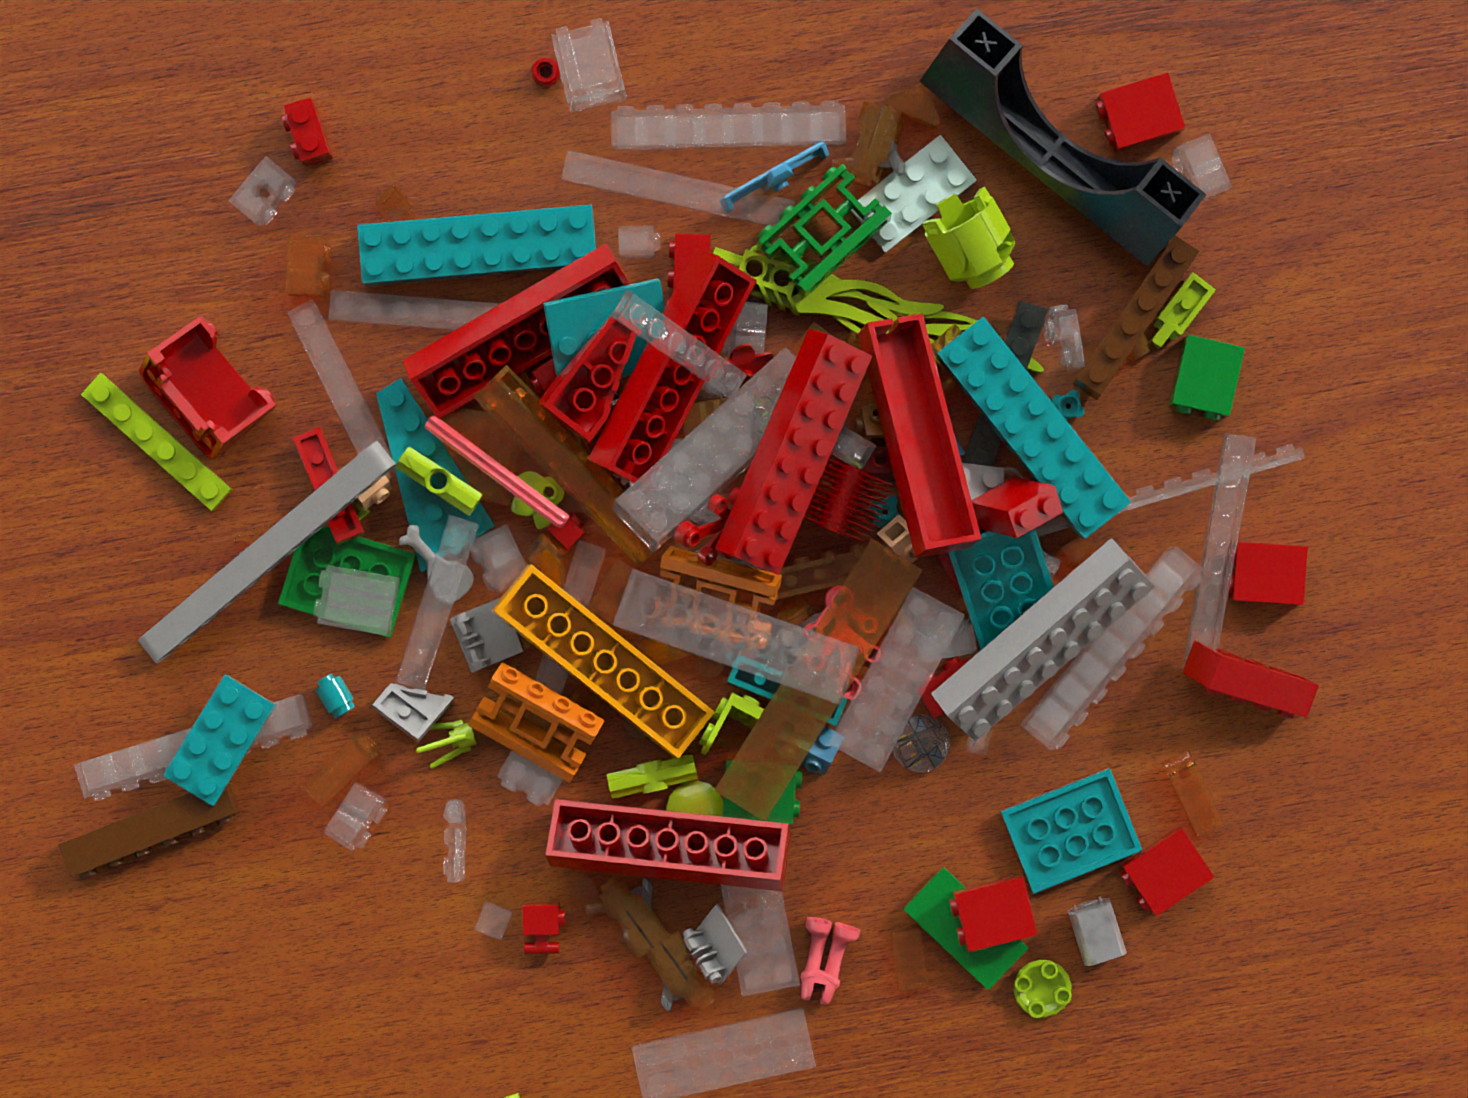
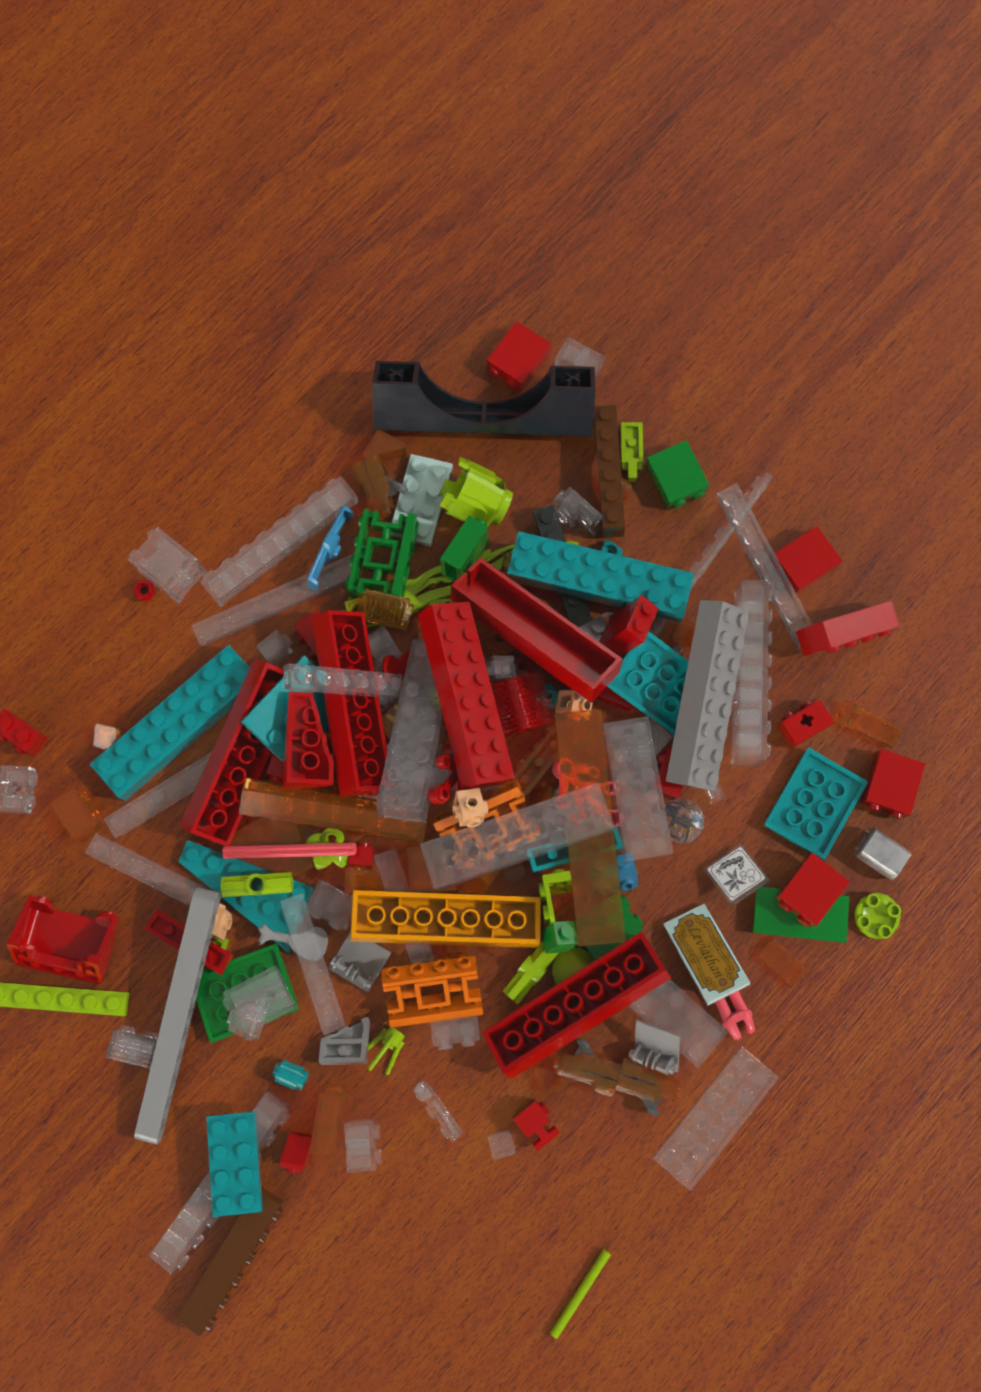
camera: 35 degrees left, 10 degrees down
(199, 549) = (132, 1046): none -> clear brick
(288, 775) = (296, 1152): none -> red slope
(338, 611) = (250, 1016): none -> clear slope
(703, 766) = (560, 937): none -> green brick
(709, 572) = (469, 807): none -> light nougat brick
(781, 292) = (385, 609): none -> clear orange window
(838, 894) = (706, 954): none -> tile
(914, 291) = (465, 548): none -> green brick
(932, 840) = (736, 875): none -> tile
(1110, 746) = (815, 714): none -> red brick

